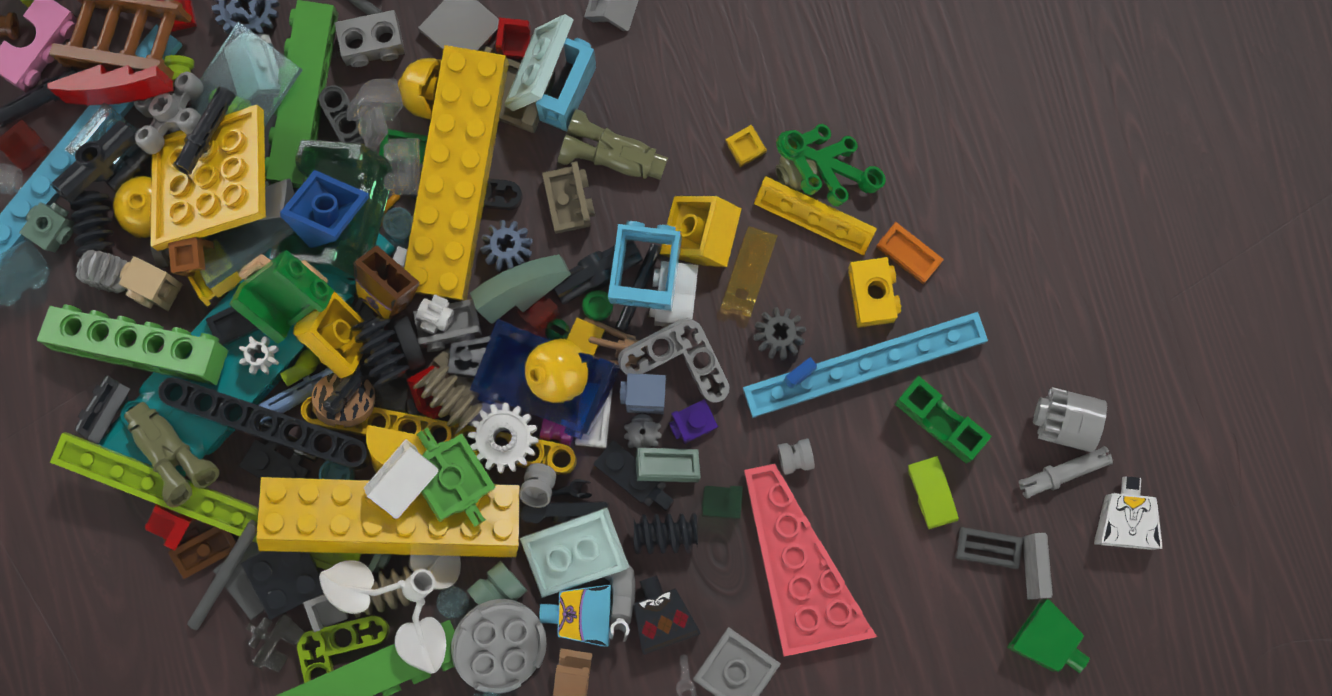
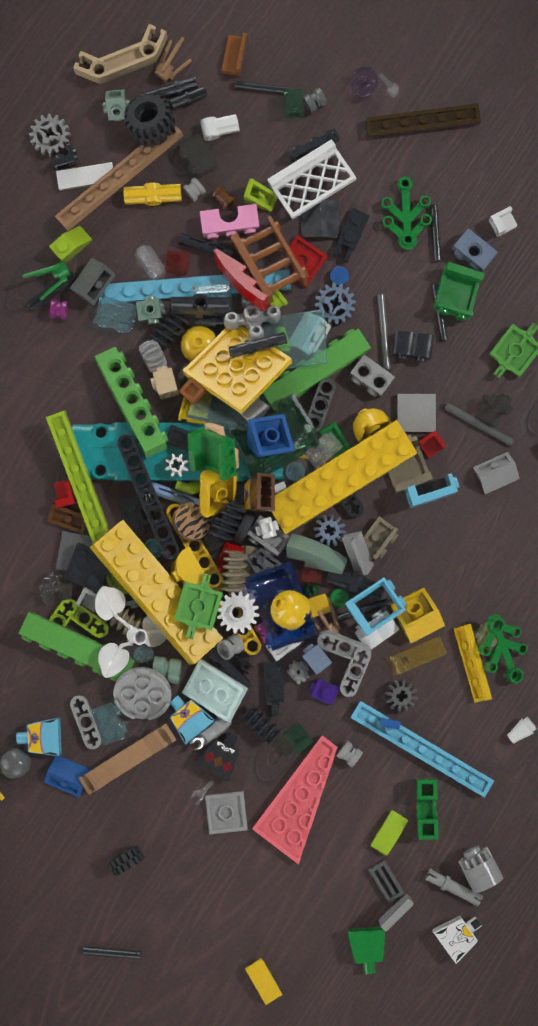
camera: 55 degrees right, 5 degrees up
(97, 417) = (89, 414): black plate -> none
(166, 451) = (97, 464): olive piece -> none
(223, 575) = (65, 539): dark grey bar -> none
(345, 390) = (195, 520): black axle -> none
(372, 106) = (338, 409): clear brick -> none
(400, 479) = (177, 585): white panel -> none
(538, 62) = (429, 469): light aqua tile -> none
(562, 234) = (358, 552): none -> light grey panel
(612, 150) = (419, 540): olive piece -> none
(667, 465) = (293, 697): sand green tile -> none
(745, 145) = (478, 600): yellow tile -> none
(871, 310) = (449, 727): yellow brick -> none
(909, 253) = (495, 723): orange tile -> none
(945, 227) = (522, 730): none -> white cone

